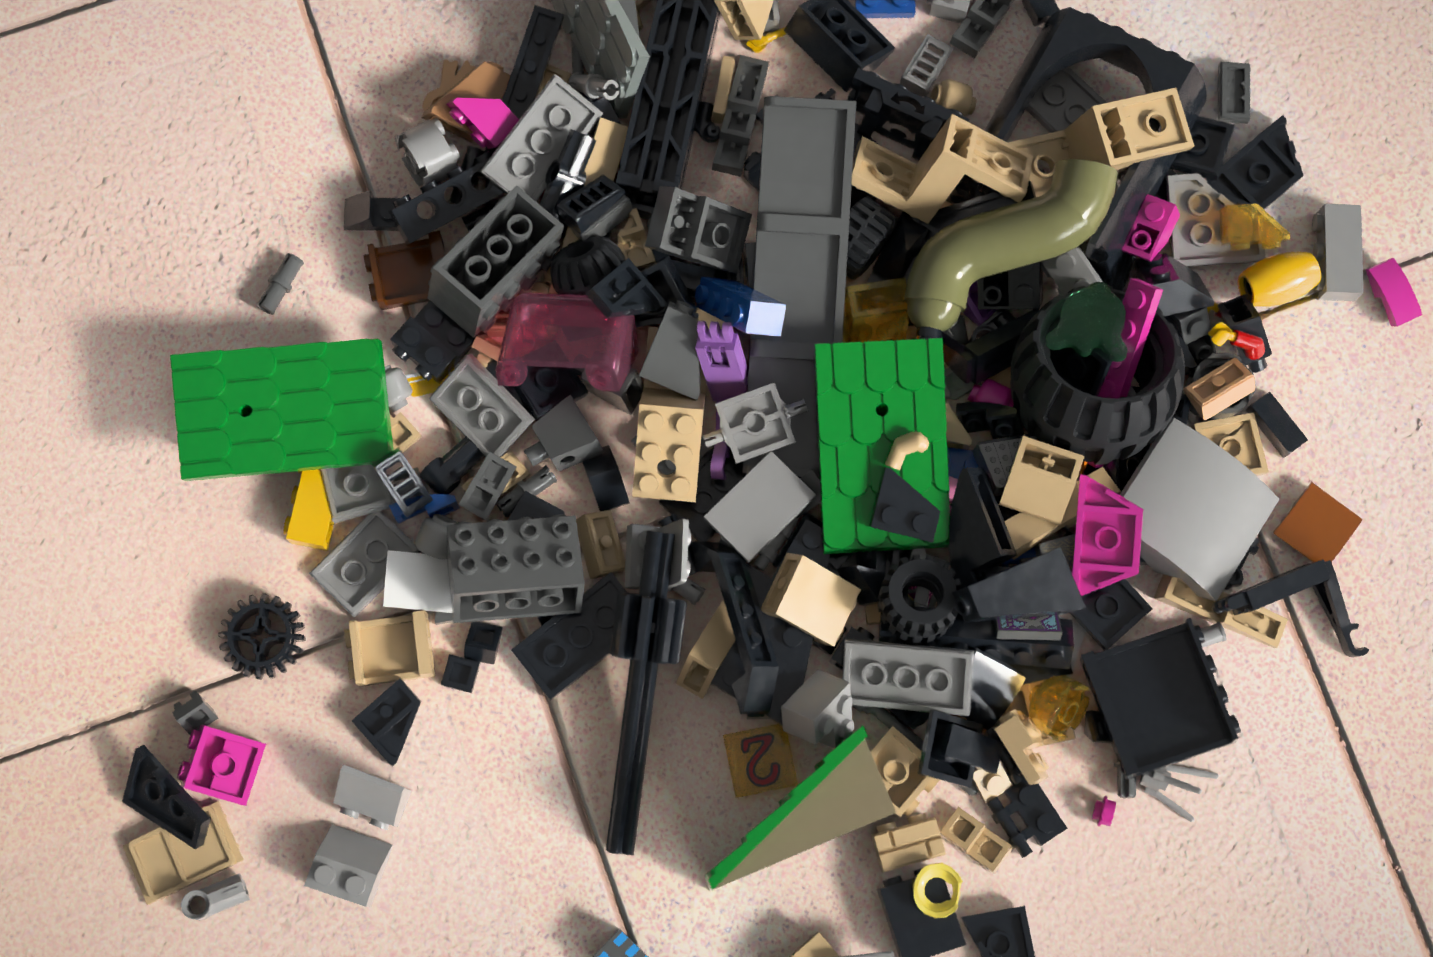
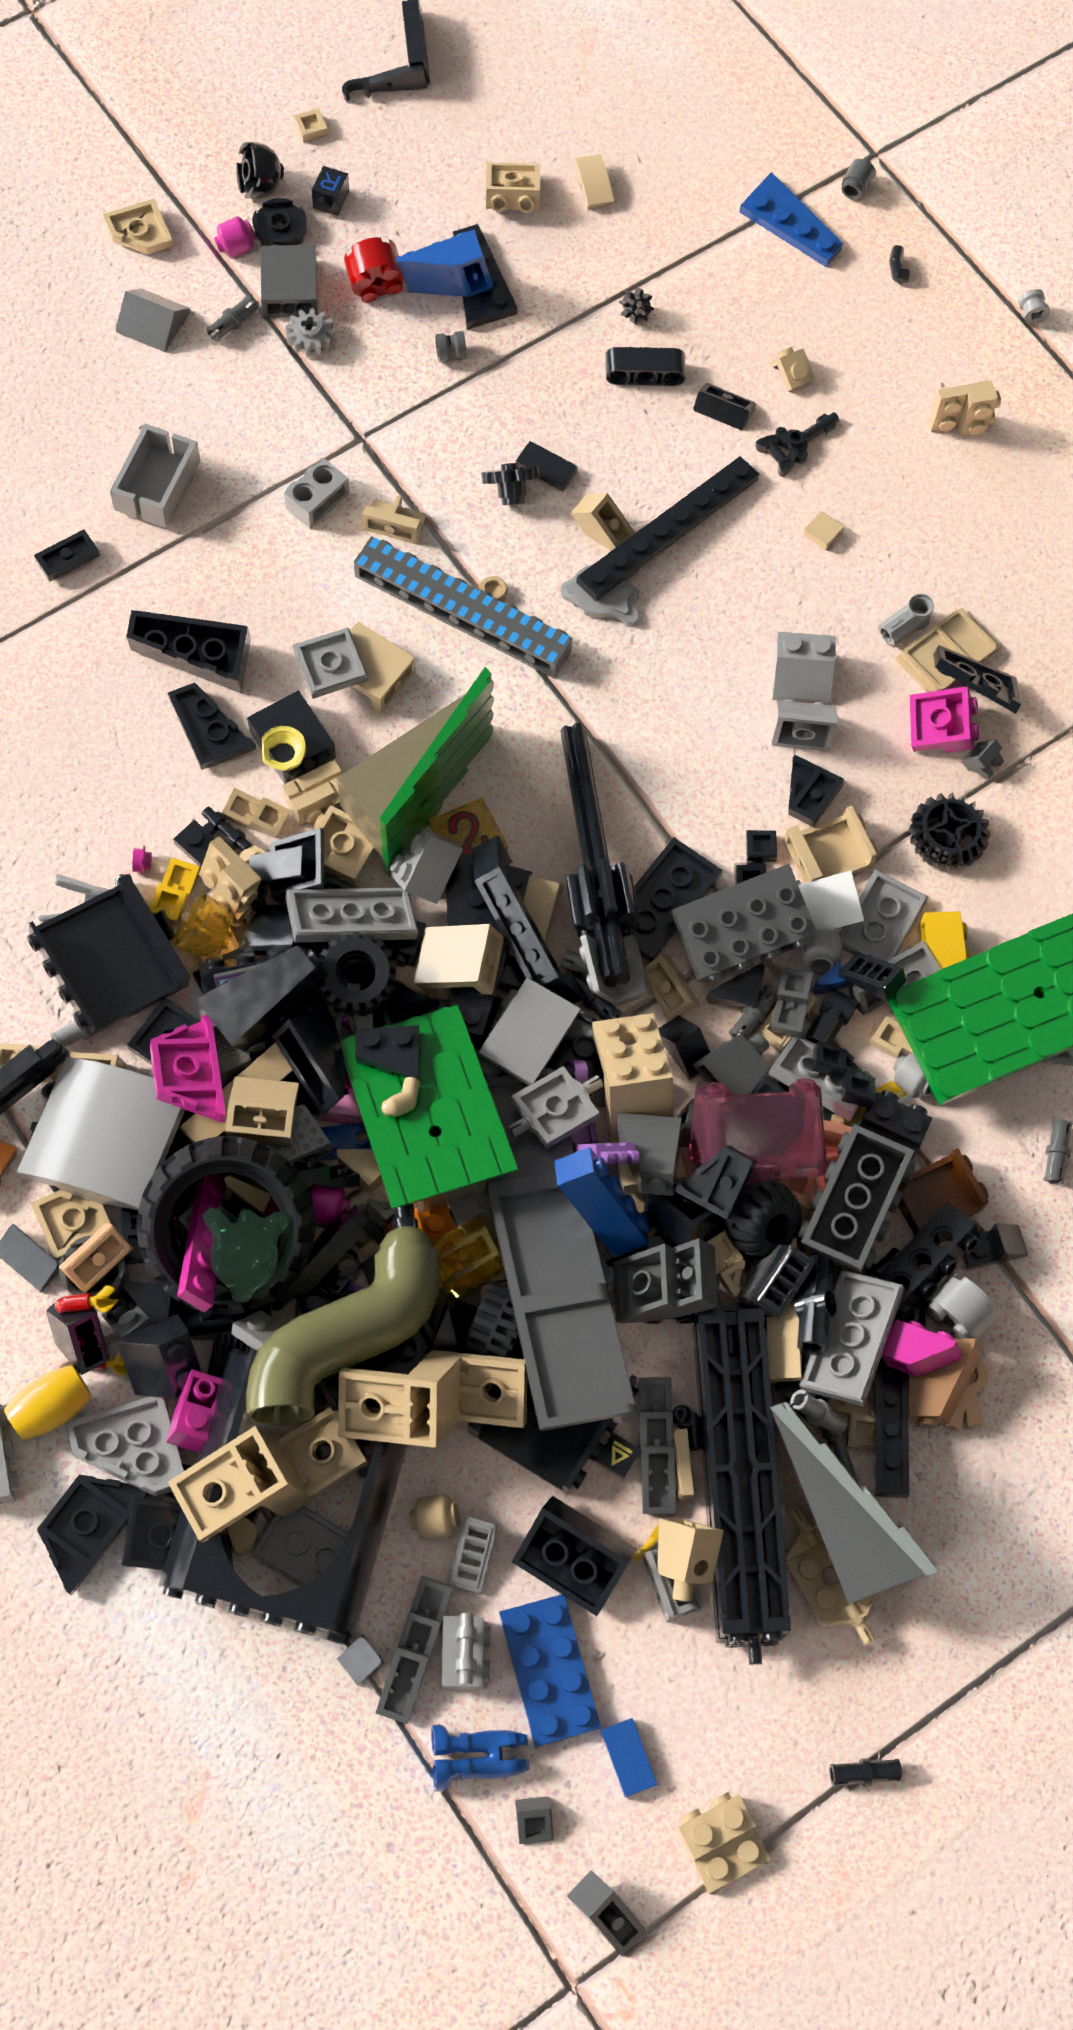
camera: 165 degrees right, 10 degrees down
(451, 390) = (857, 1086): none -> black tile
(893, 103) = (454, 1471): black piece -> none
(1074, 771) = (175, 888): none -> yellow slope
(1234, 92) = (127, 1611): dark grey plate -> none
(1250, 225) = (87, 1442): clear yellow slope -> none

